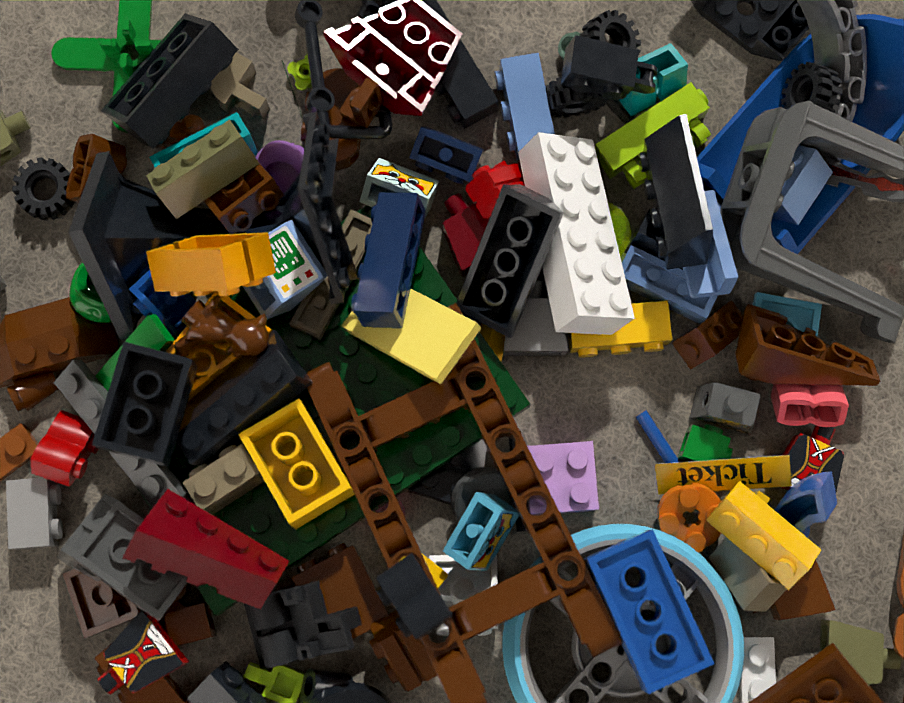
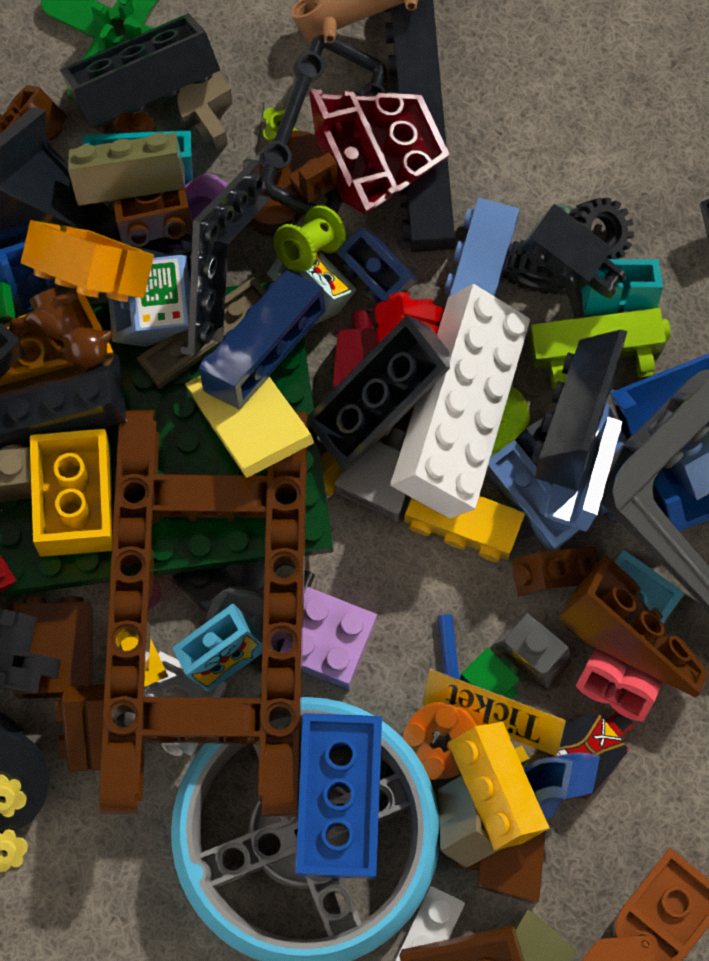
camera: 30 degrees right, 5 degrees down
(379, 167) = (298, 245): none -> lime hose
(413, 597) = (114, 667): black brick -> none

